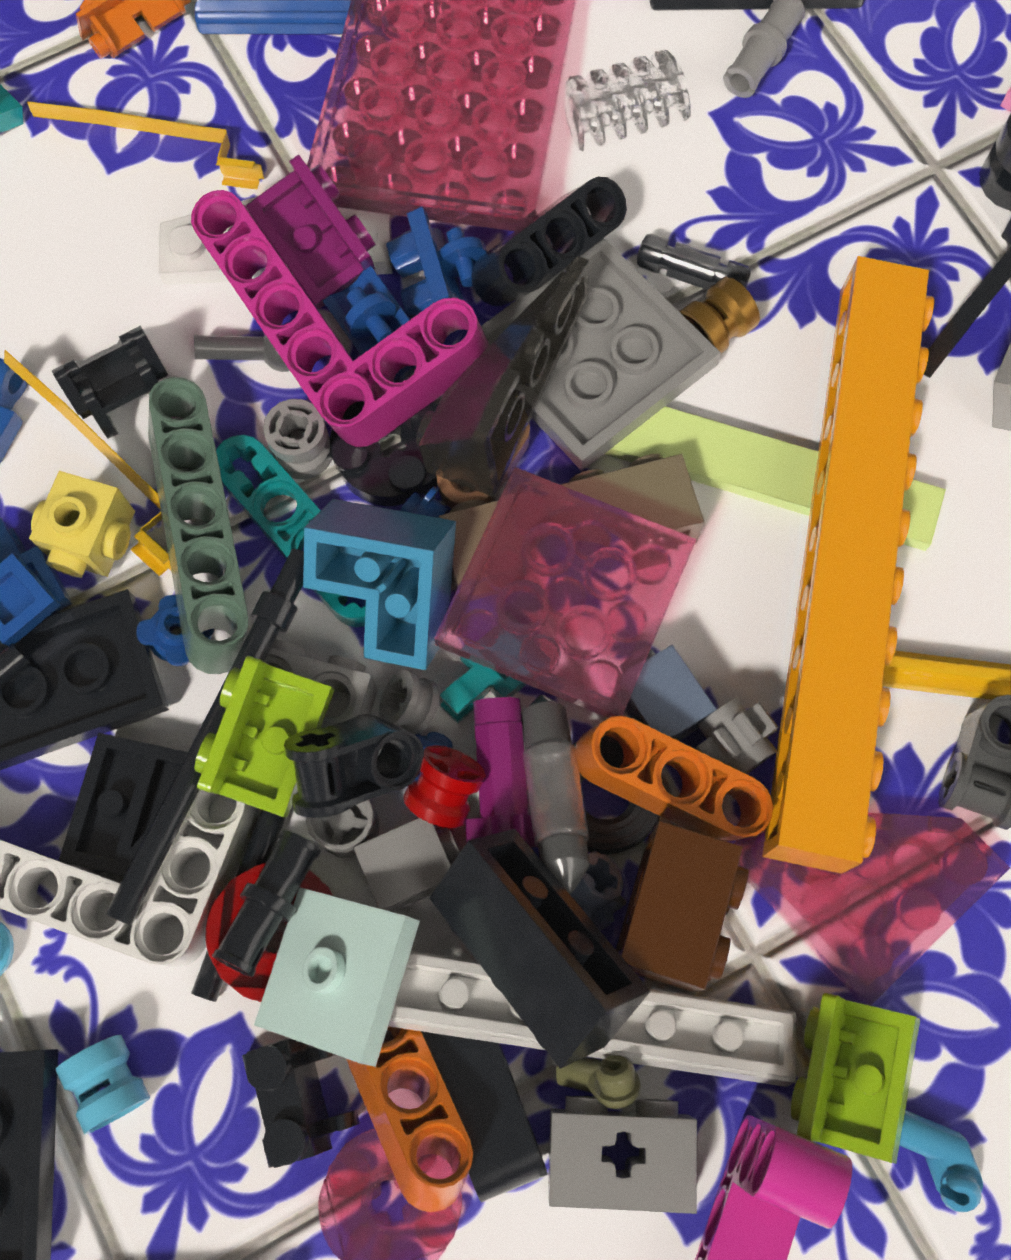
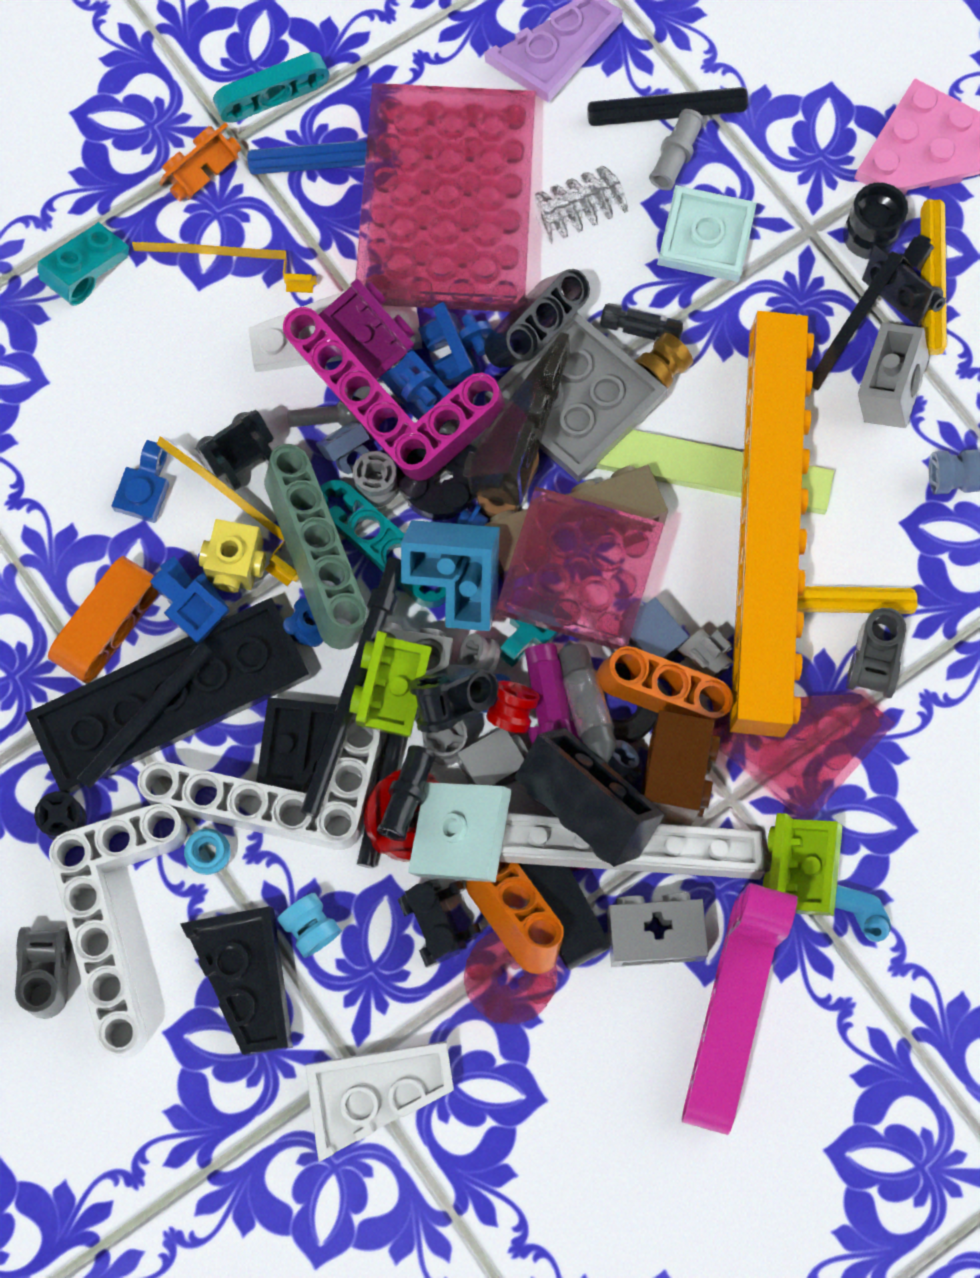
camera: 10 degrees left, 0 degrees up
(261, 387) = (343, 442): none -> sand blue tile
(608, 1079) = (644, 883): olive arm -> none
(795, 155) = (707, 233): none -> light aqua plate

